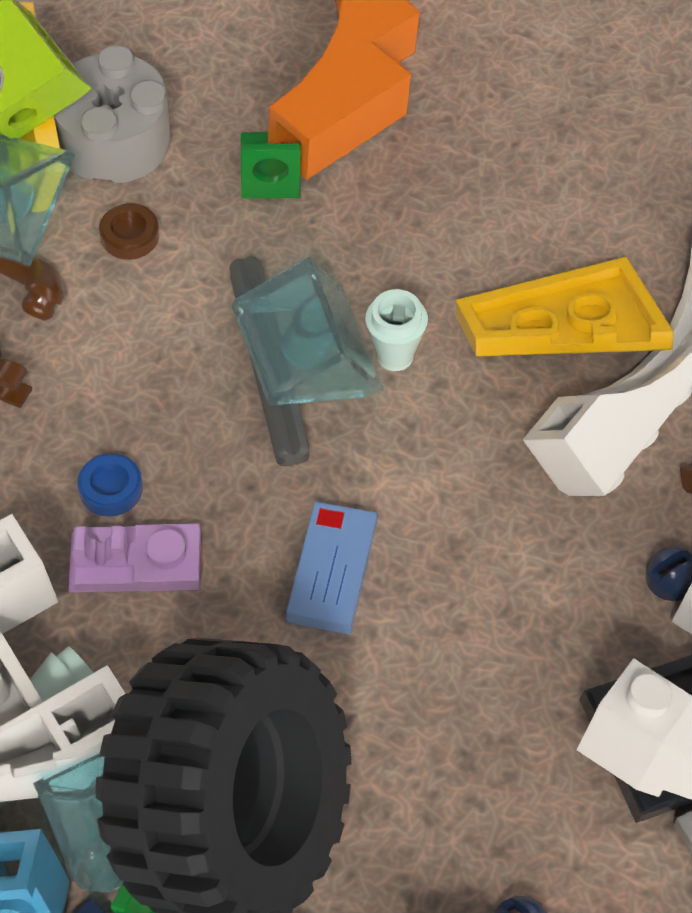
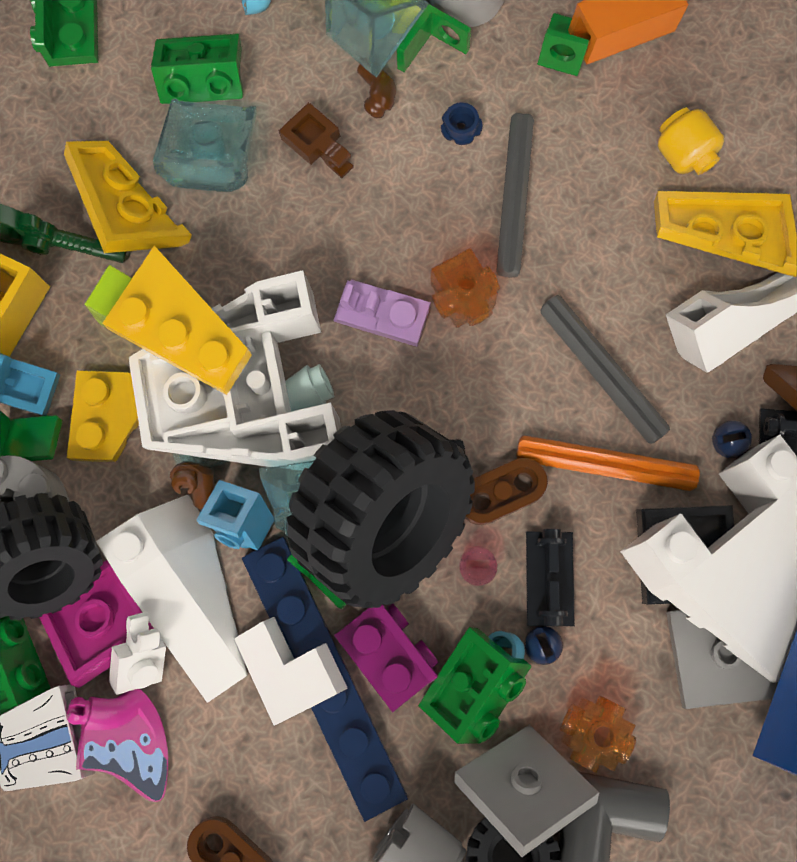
camera: 25 degrees right, 20 degrees up
(82, 187) = (431, 24): none -> green bracket
(110, 485) = (382, 254): blue tile -> none
(129, 231) = (453, 67): reddish brown tile -> none
(160, 281) = (457, 114): none -> dark blue plate
(240, 489) = (464, 289): none -> clear orange brick
(305, 338) = (544, 190): clear light blue slope -> none
(332, 568) = (507, 360): medium blue tile -> none
(384, 828) = (478, 575): none -> clear pink hinge
(386, 739) = (502, 493): none -> reddish brown plate
(396, 327) = (609, 201): light aqua cone -> none
(469, 538) = (604, 369): none -> dark grey axle
(475, 232) = (690, 141): none -> yellow head
(495, 830) = (549, 578): none -> black hinge
(517, 655) = (609, 463): none -> orange axle

